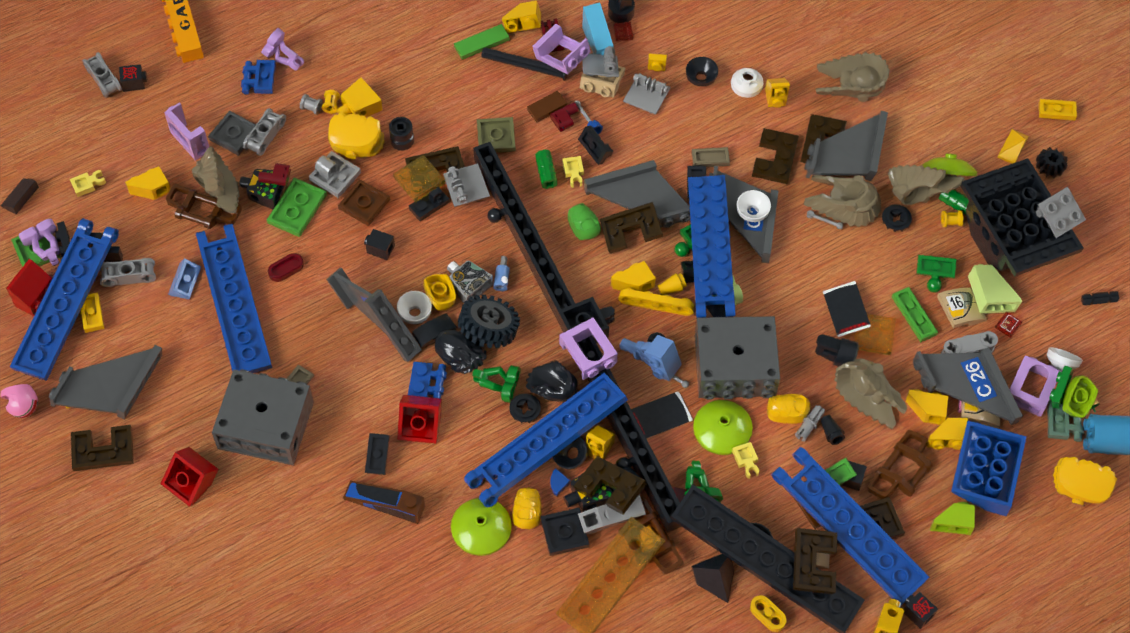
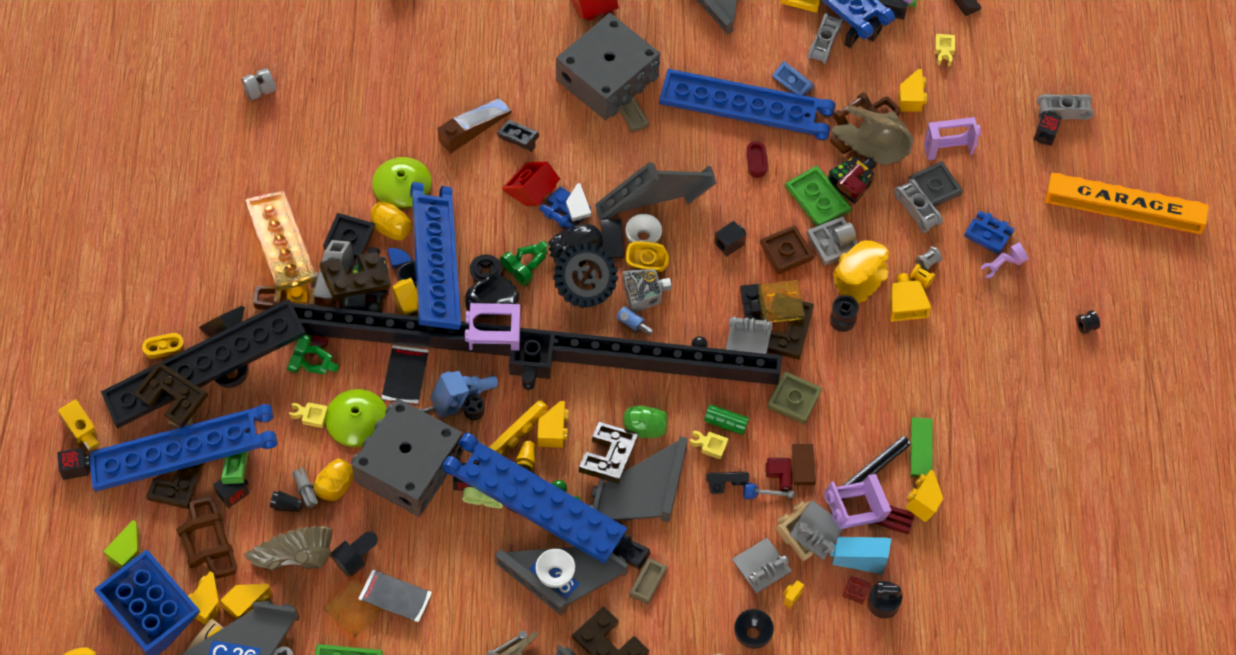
camera: 120 degrees right, 0 degrees up
(421, 366) = (577, 204): none -> white tile

